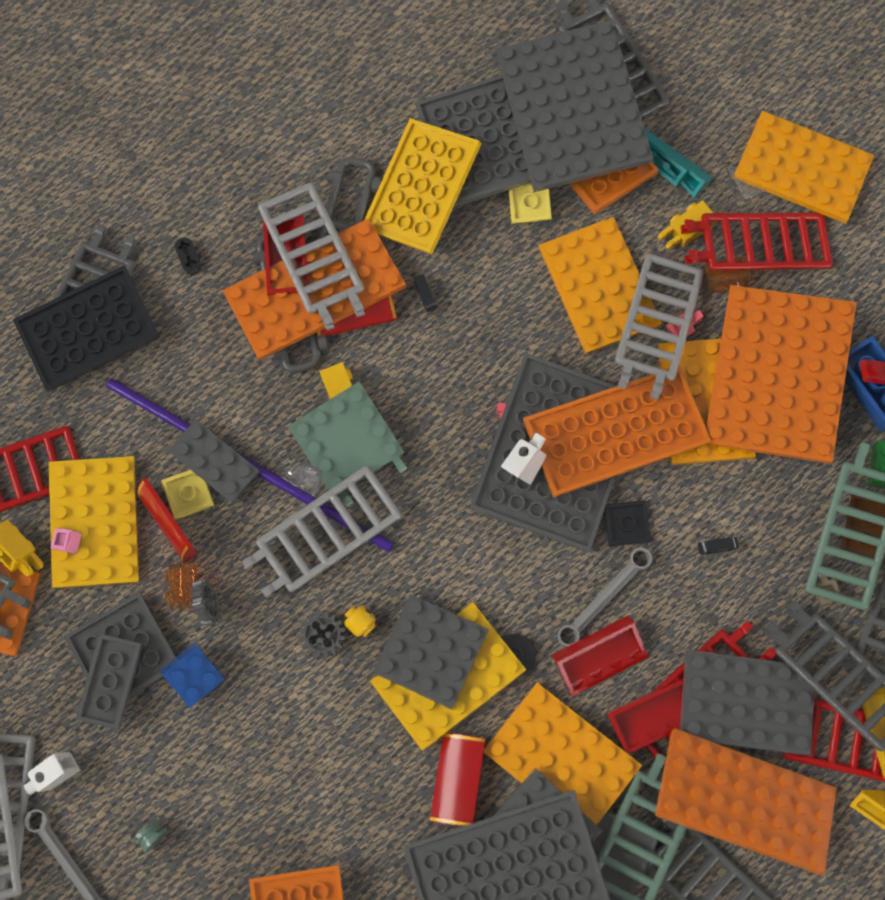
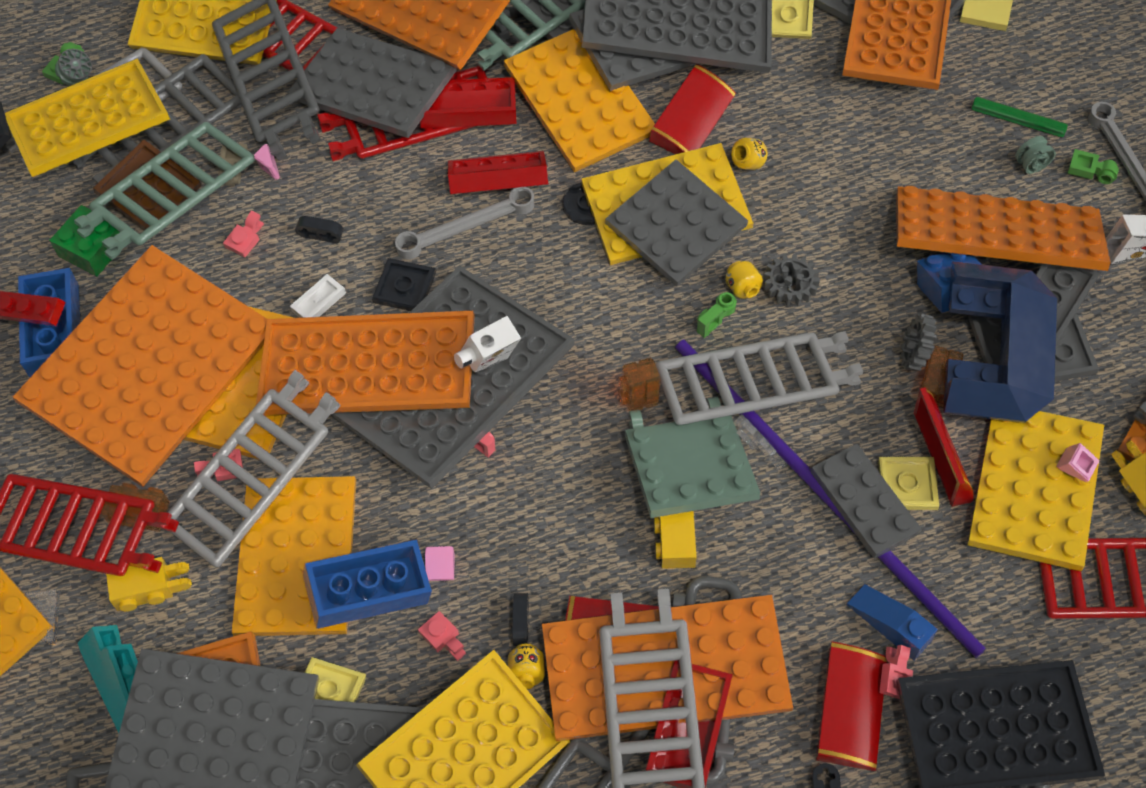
camera: 160 degrees left, 15 degrees down
(106, 846) = (1086, 165): none -> bright green plate
(119, 621) = (1027, 348): none -> dark blue slope
(161, 345) = (894, 669): none -> coral plate
(164, 739) = (1001, 228): none -> orange plate
(173, 381) = (893, 620): none -> blue slope
(173, 883) = (1019, 117): none -> green axle
(186, 316) = (851, 707): none -> red slope
(374, 574) = (712, 318): none -> bright green plate
(394, 747) = (749, 153): none -> yellow head
(406, 488) = (639, 385): none -> clear orange brick
(408, 262) = (527, 664): none -> yellow head
(474, 267) = (441, 633): none -> coral plate
(497, 313) = (440, 563): none -> bright pink slope
(535, 269) = (366, 583): none -> blue brick
(686, 483) = (318, 298): none -> white plate
(776, 517) = (244, 238): none -> coral plate
(793, 592) = (267, 161): none -> bright pink slope

